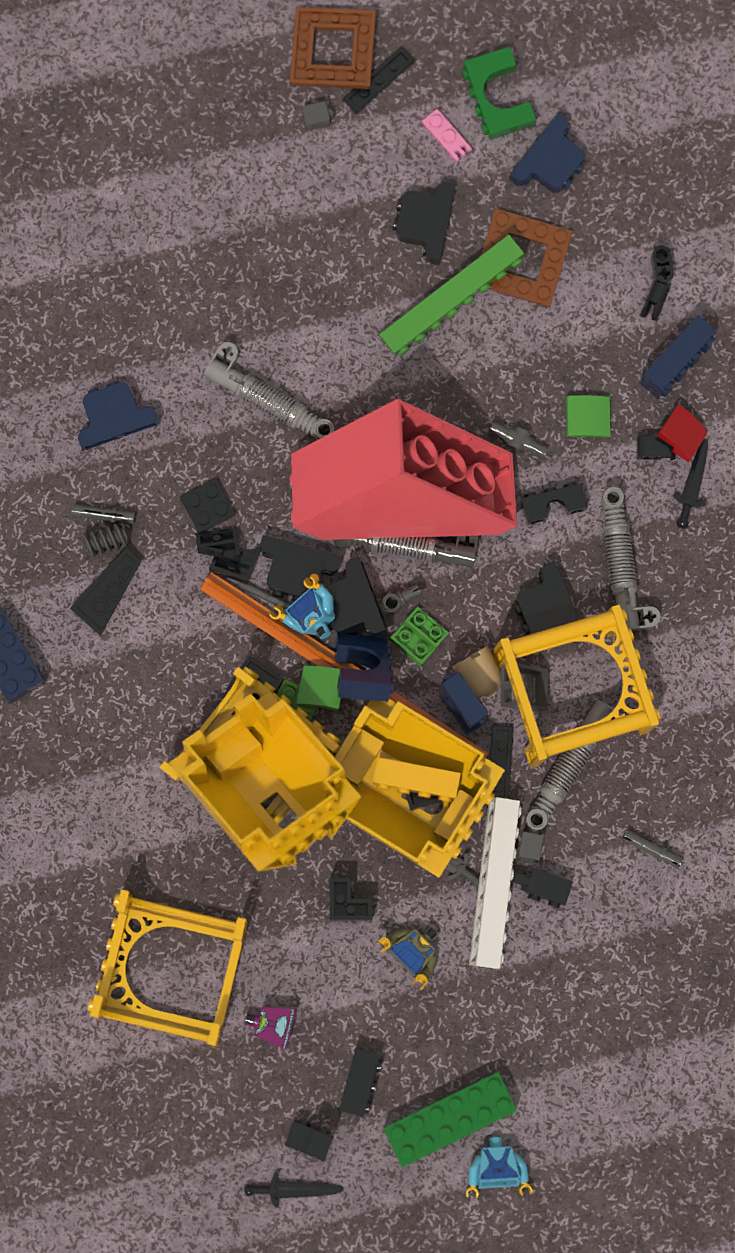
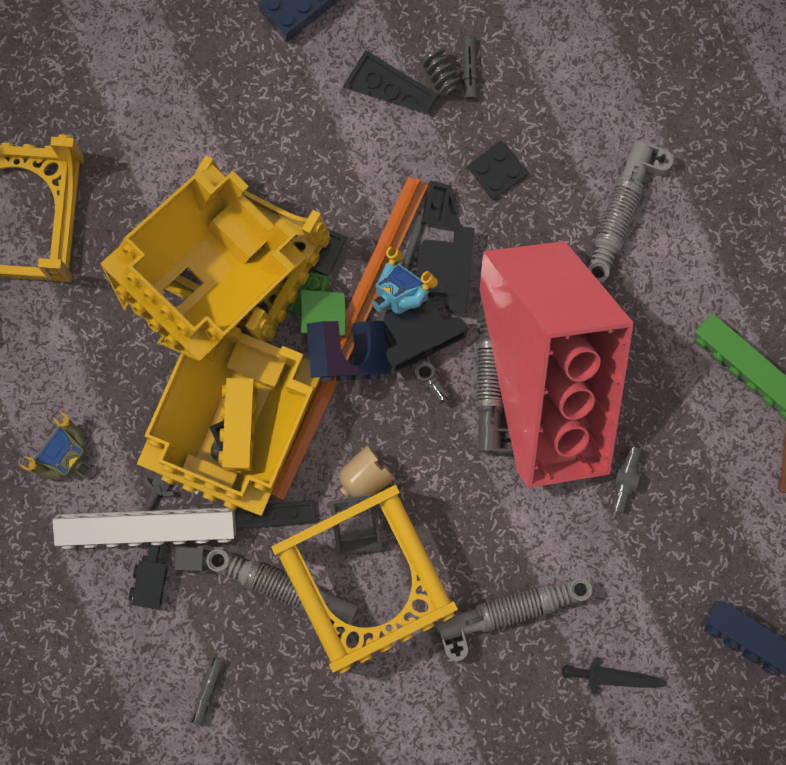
camera: 85 degrees right, 0 degrees up
(113, 415) = (573, 58): dark blue brick -> none
(219, 544) = (458, 187): black wing -> none
(343, 907) = (98, 373): black brick -> none
(418, 636) = (396, 408): bright green slope -> none
(462, 703) = (325, 458): dark blue arch -> none
(546, 603) = (451, 537): black brick -> none
(571, 497) = (558, 509): black arch -> none
(587, 416) = (666, 550): bright green slope -> none
(653, 448) = (645, 629): black beam -> none
(683, 433) = (666, 656): red slope -> none

